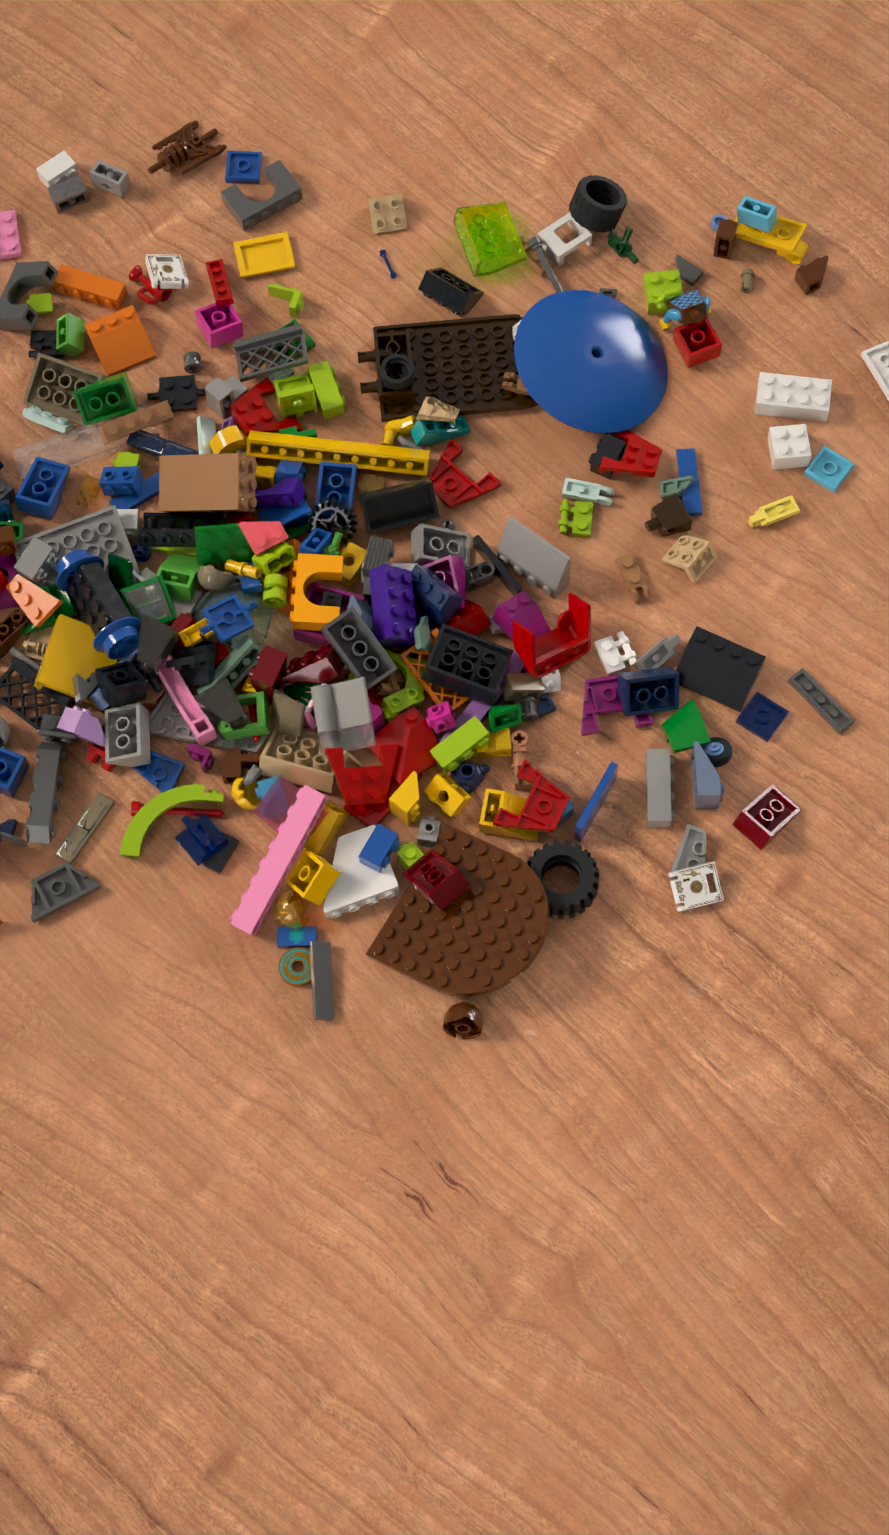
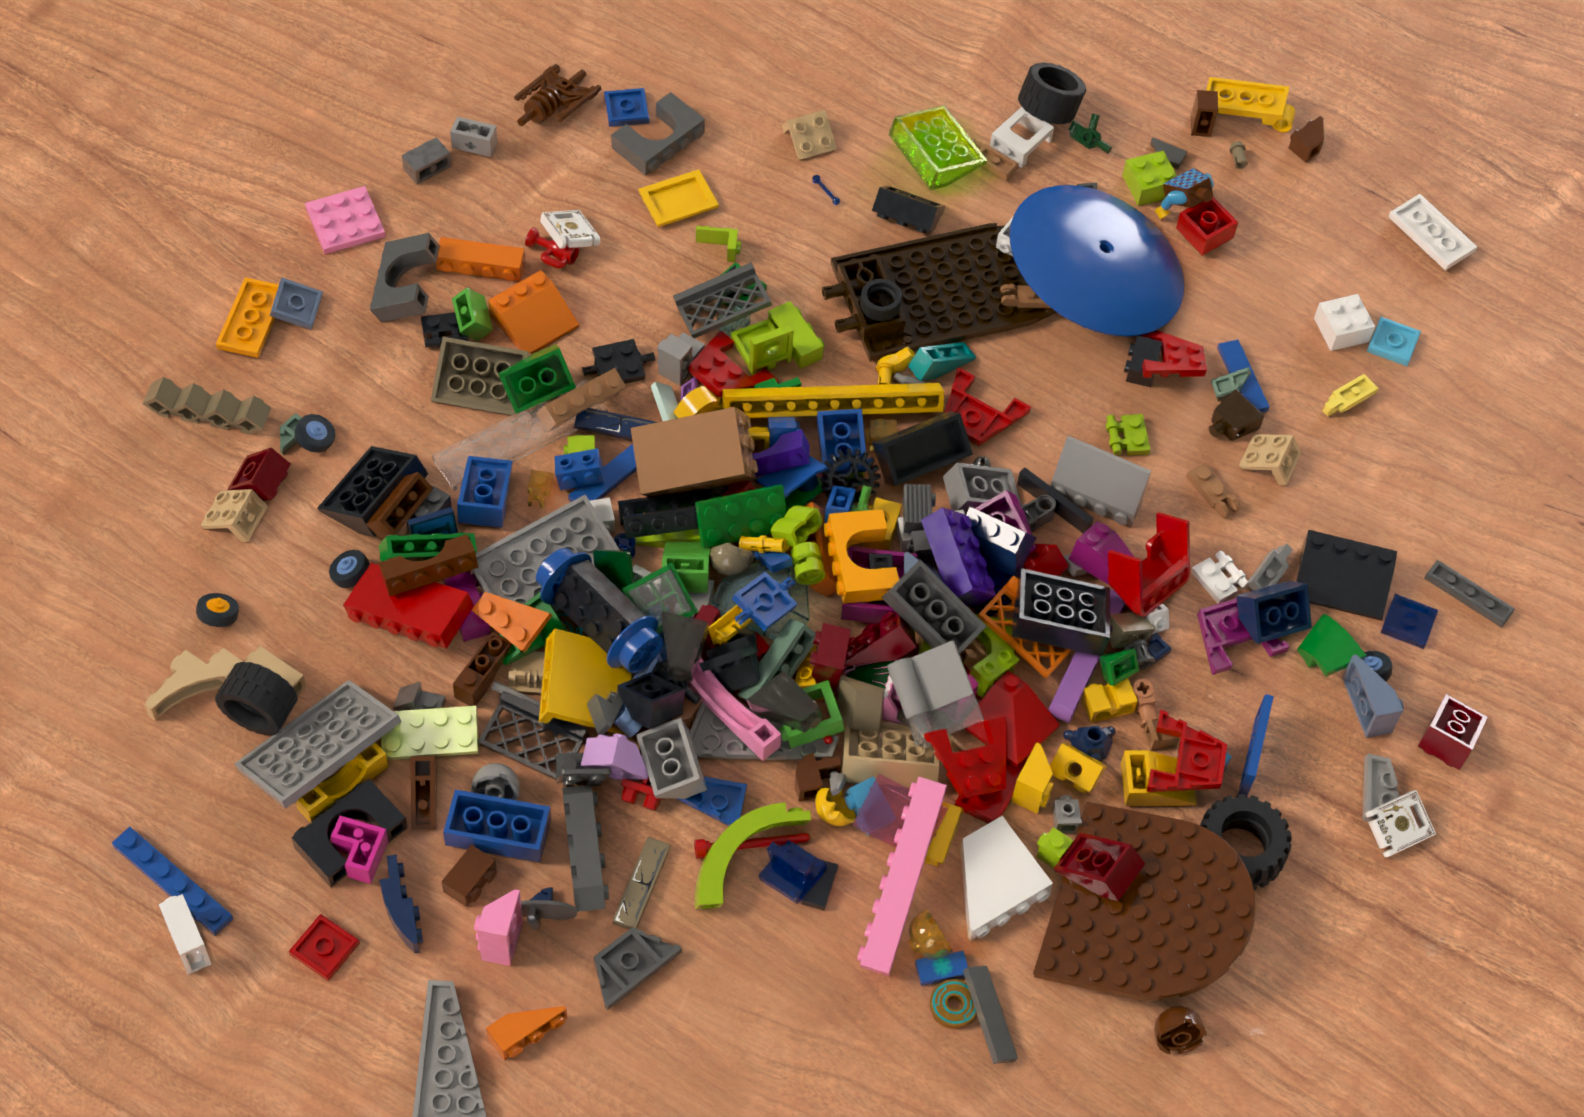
camera: 20 degrees left, 10 degrees down
(37, 561) = (508, 571): light grey brick -> none
(41, 303) = (429, 281): lime brick -> none
(46, 419) = (467, 413): light aqua hinge -> none
(57, 169) = (406, 136): white brick -> none
(192, 362) = (626, 324): dark grey wheel -> none
(201, 754) = (765, 770): magenta bracket -> none
(219, 283) = (637, 233): red tile -> none
(219, 324) = (649, 277): dark pink brick -> none
(263, 535) = (780, 499): coral wing -> none
(312, 877) = (947, 889): yellow brick -> none
(379, 848) = (1019, 841): blue brick -> none
(422, 635) = (1001, 585): sand green tile -> none
(435, 410) = (934, 337): tan slope -> none
(441, 717) = (1046, 678): dark pink brick -> none
(461, 745) = (1080, 705): lime brick -> none
(535, 245) = (994, 145): dark grey piece -> none
(587, 491) = (1132, 403): light aqua hinge -> none
(659, 788) = (1320, 719): light grey brick -> none
(668, 294) = (1162, 177): lime arm -> none
(715, 221) = (1186, 99): medium blue tile -> none
(757, 214) = (1233, 81): medium azure brick -> none
(793, 397) = (1331, 269): white brick -> none

